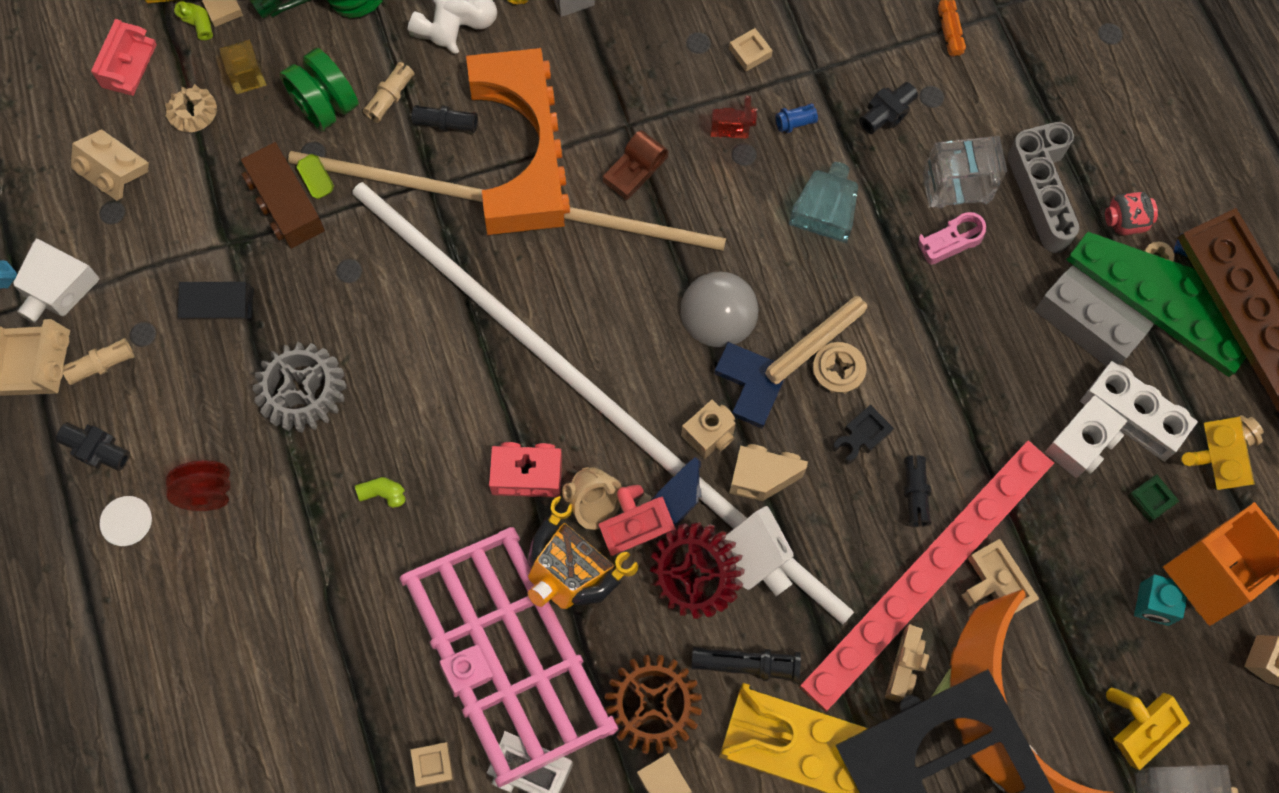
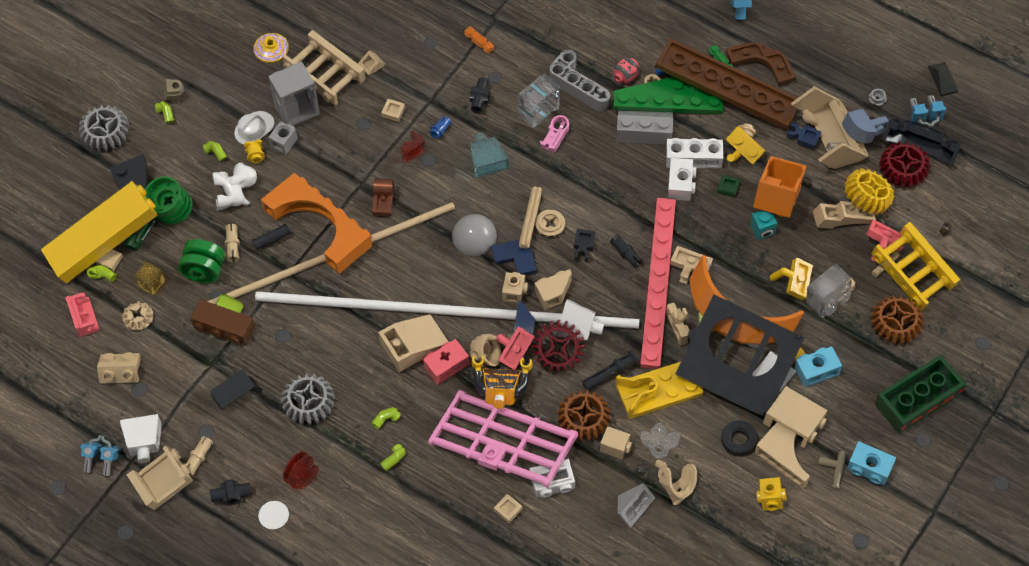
camera: 35 degrees left, 10 degrees down
(341, 563) = (394, 458): none -> lime arm
(504, 405) = (411, 340): none -> tan slope

